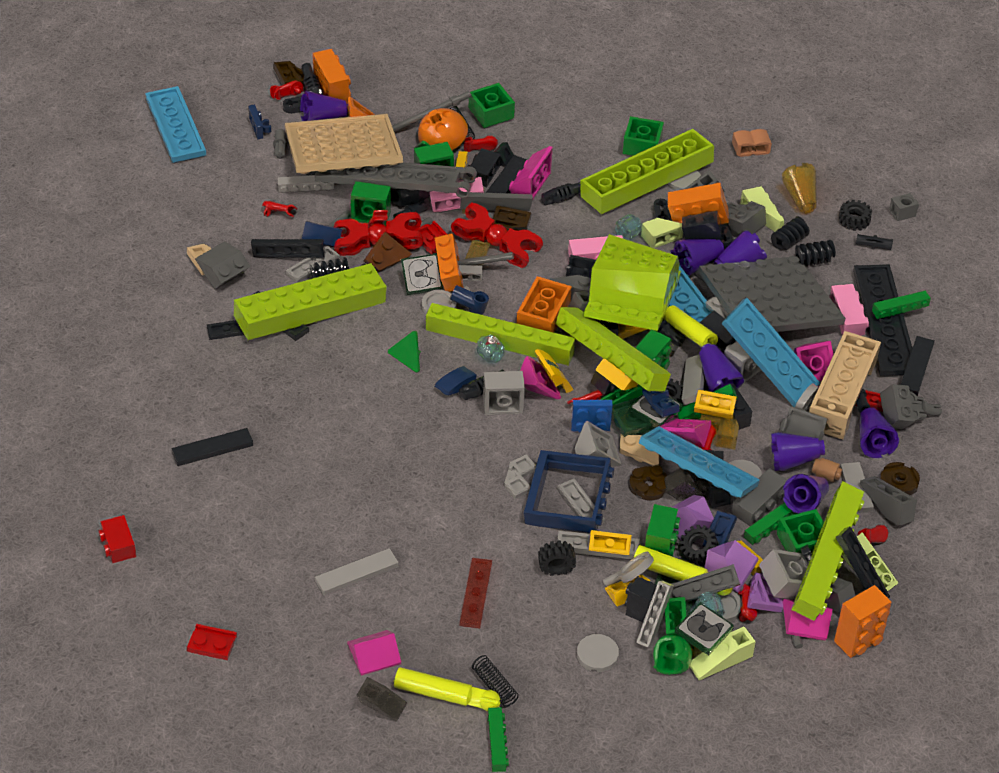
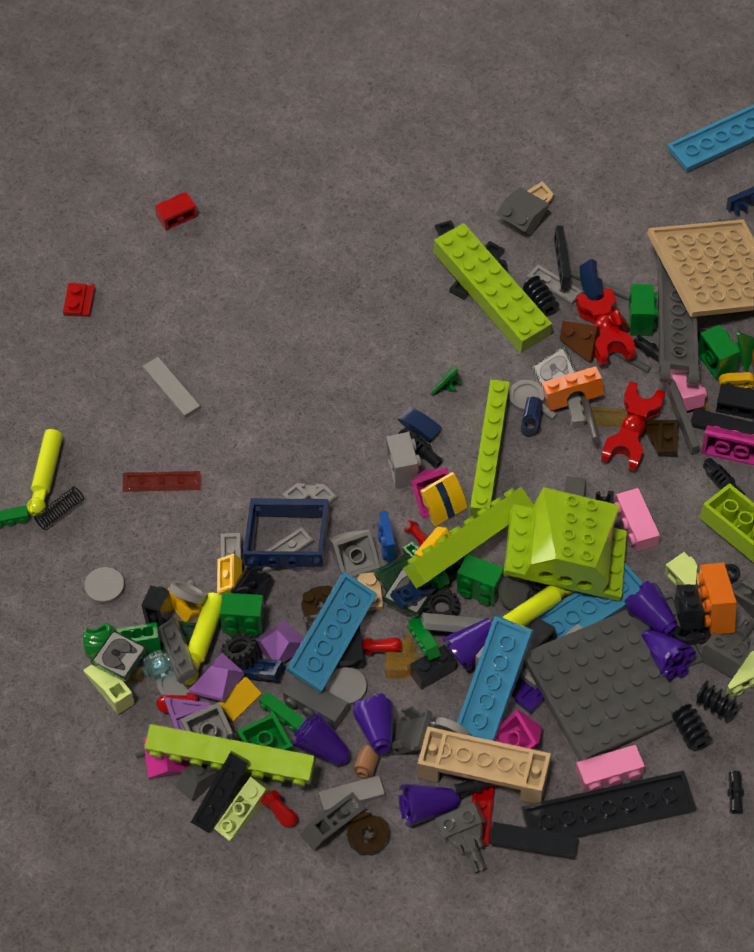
camera: 85 degrees right, 10 degrees up
(212, 447) = (299, 255): black tile -> none
(269, 206) = (624, 237): red piece -> none
(375, 652) = (83, 414): dark pink slope -> none
(381, 699) = (25, 424): clear smoke slope -> none
(429, 234) = (618, 374): red plate -> none
(490, 349) = (466, 444): clear light blue head -> none
(543, 304) = (533, 475): orange brick -> none
(557, 558) = (200, 533): black tyre -> none
(627, 523) = (251, 582): none -> black hinge
(628, 226) = (681, 541): clear light blue head -> none
(655, 613) = (138, 616): light grey piece -> none
(690, 430) = (385, 622): dark pink slope -> none
(715, 404) = (414, 639): yellow slope -> none
(862, 621) = (149, 795): orange brick -> none
(901, 304) = (625, 819): green piece -> none

